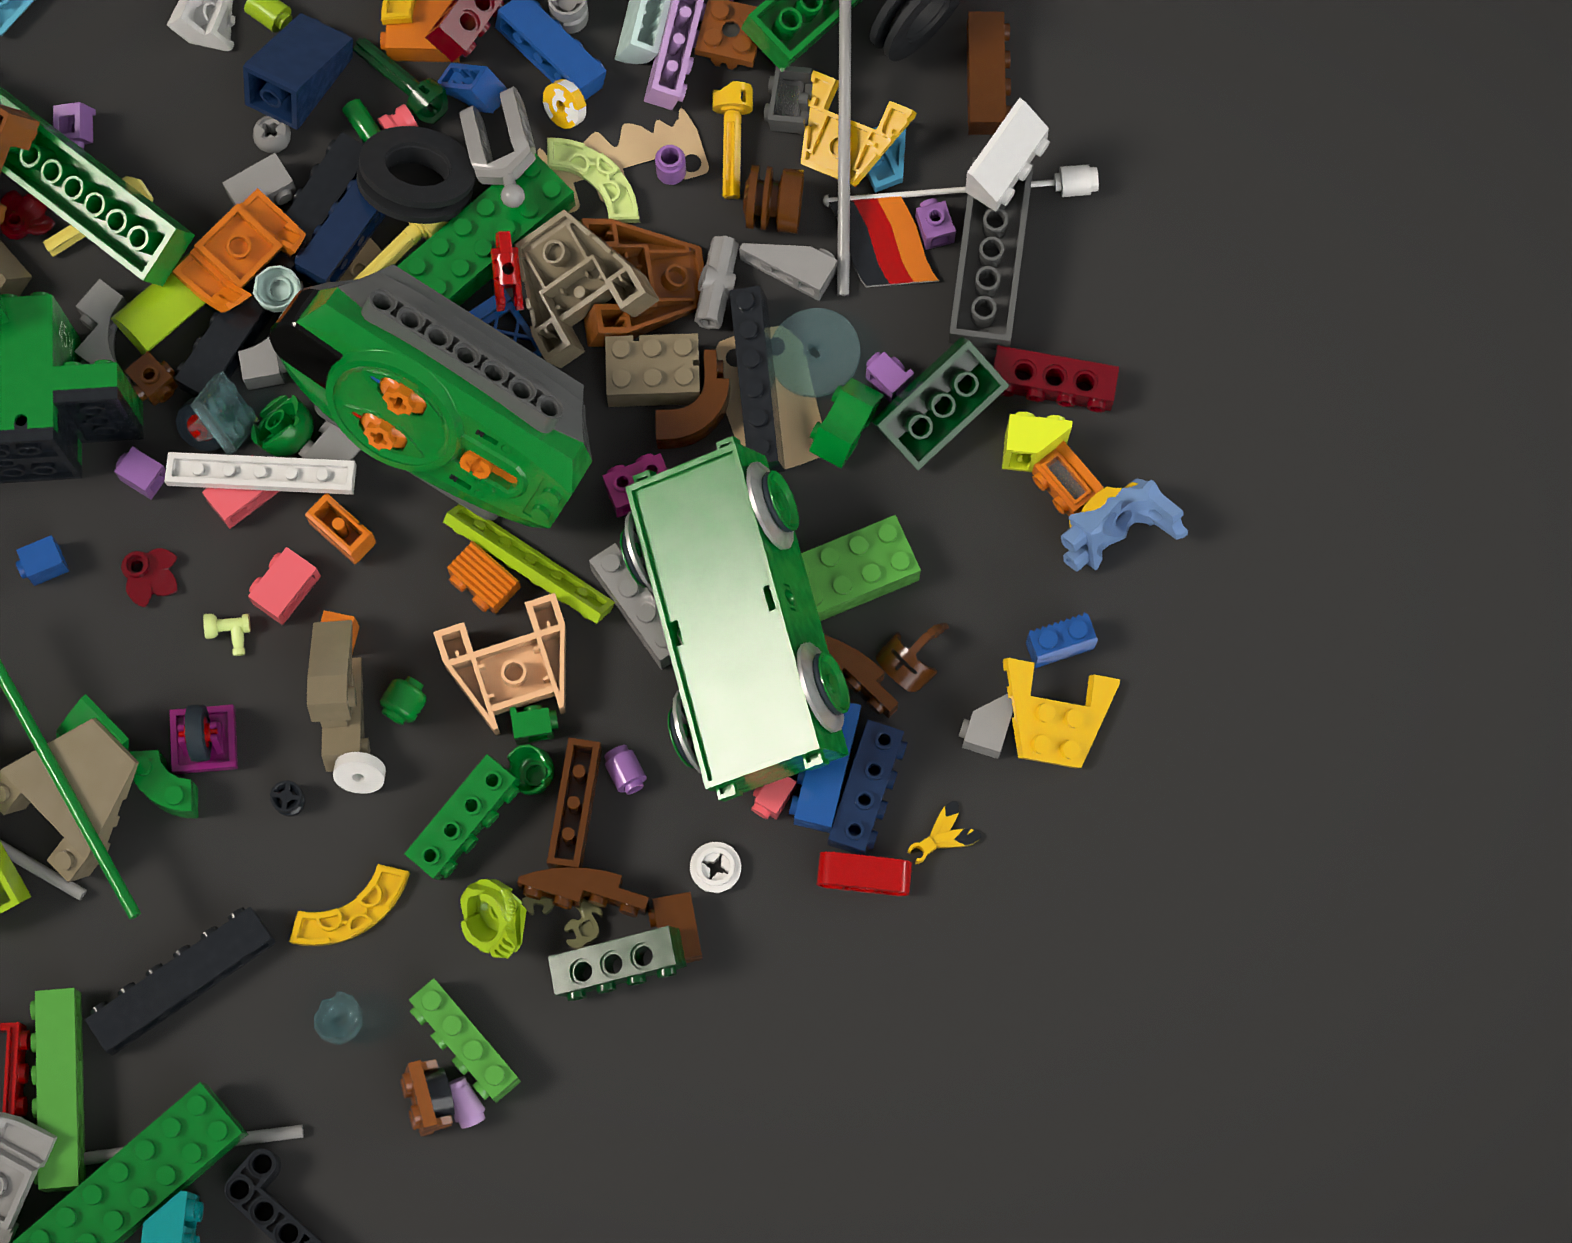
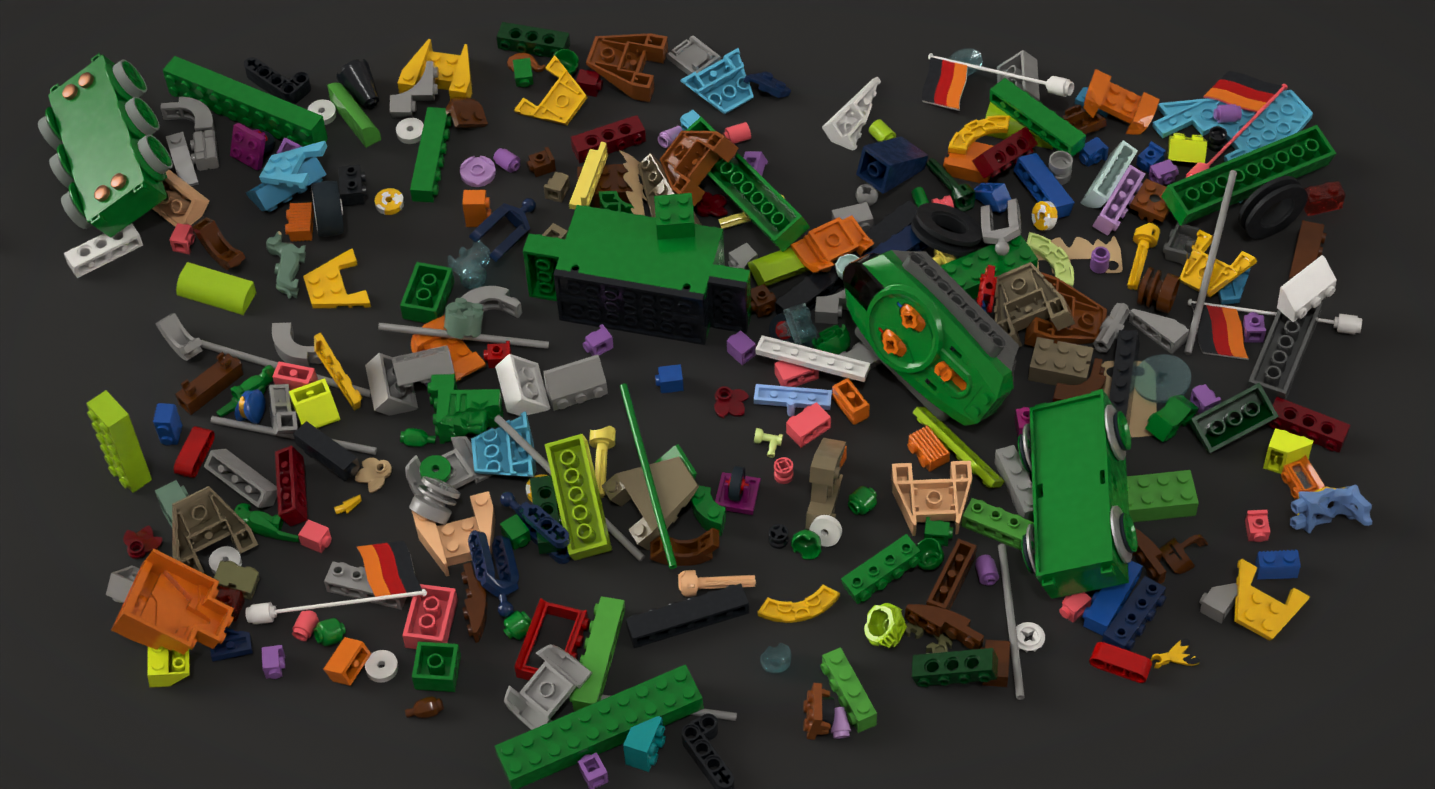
camera: 20 degrees right, 20 degrees down
(31, 71) = (738, 133): none -> coral brick
(149, 867) = (687, 551): none -> reddish brown arch
(170, 924) = (690, 583): none -> light nougat piece
(246, 542) = (791, 397): none -> light blue plate
(267, 685) = (783, 470): none -> coral wheel
(337, 801) = (807, 544): none -> green hair
(621, 683) = (995, 523): none -> bright green brick
(683, 850) = (1011, 622): none -> light grey piece
(1014, 591) = (1257, 525): none -> coral brick

